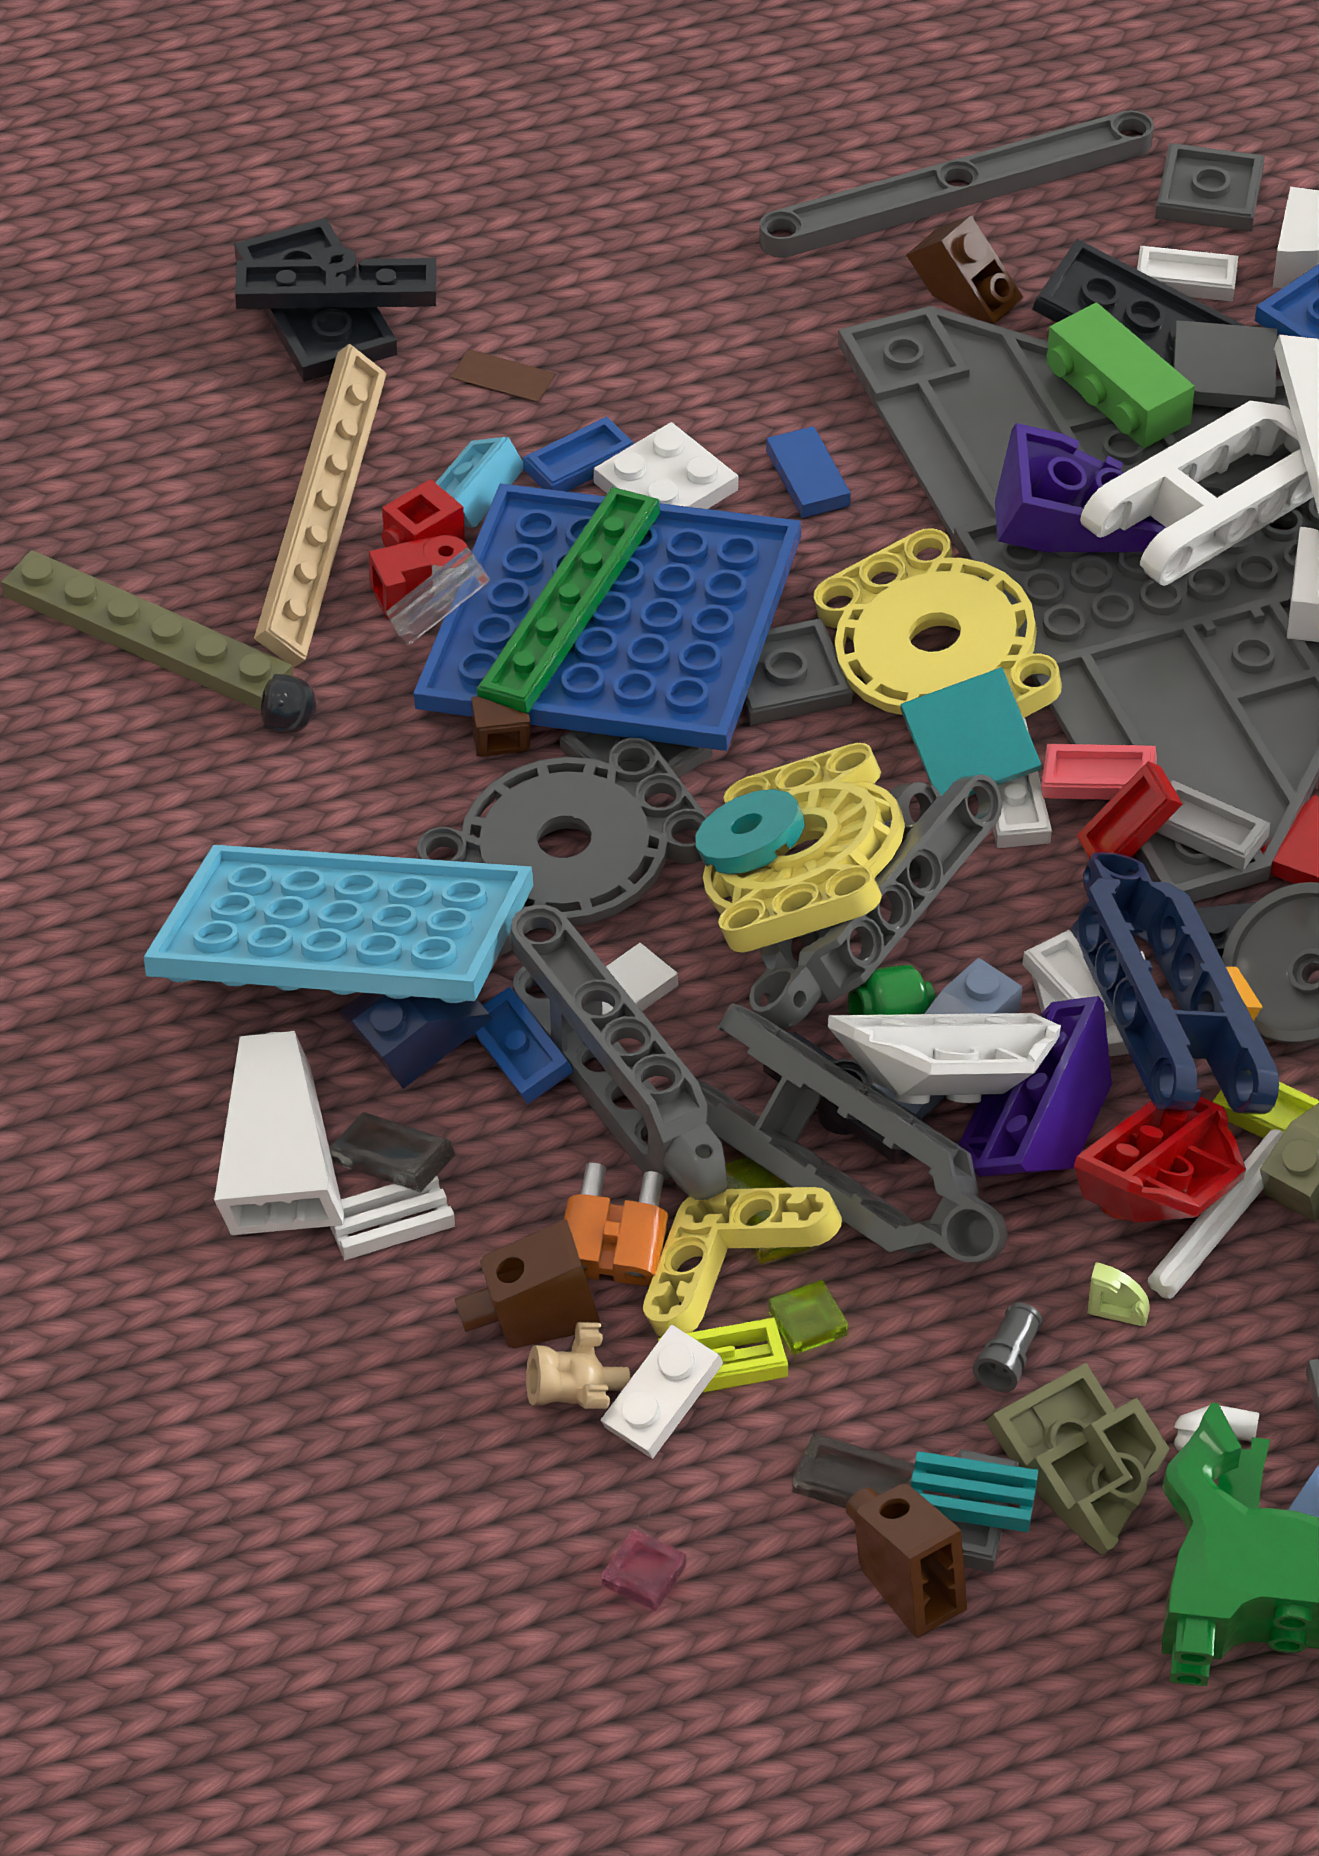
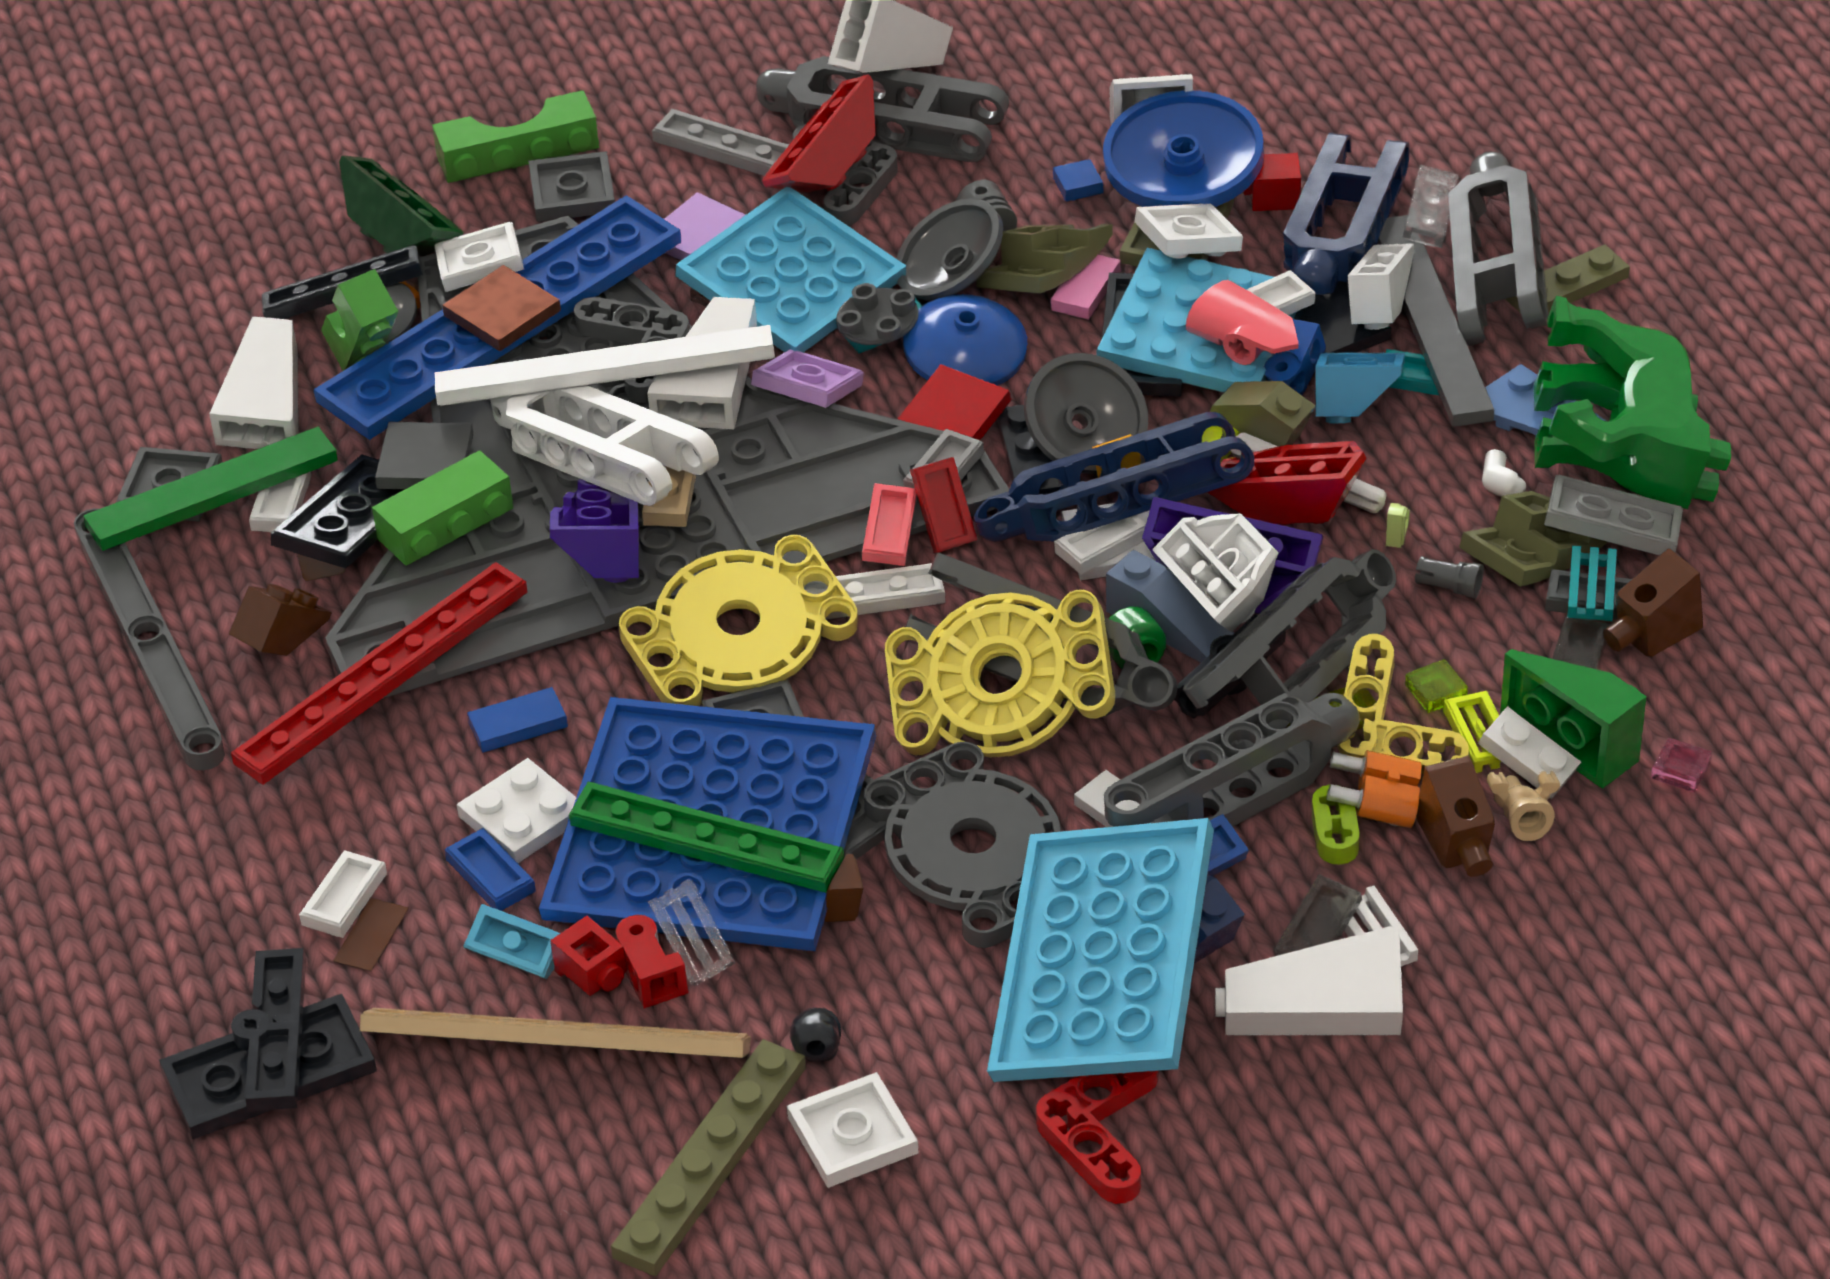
camera: 90 degrees left, 5 degrees down
(91, 953) = (1085, 1125): none -> red beam
(152, 734) = (852, 1129): none -> white plate
(557, 348) = (343, 894): none -> white tile
(561, 1182) = (1326, 824): none -> lime beam
(689, 1428) = (1579, 709): none -> green slope
(749, 831) = (975, 679): teal tile -> none
(865, 345) = (378, 673): none -> red tile
(971, 732) = (861, 588): teal tile -> none
(1102, 1533) = (1613, 515): none -> light grey tile
(1122, 572) = (675, 507): none -> tan plate
(1180, 206) = (210, 488): none -> green tile

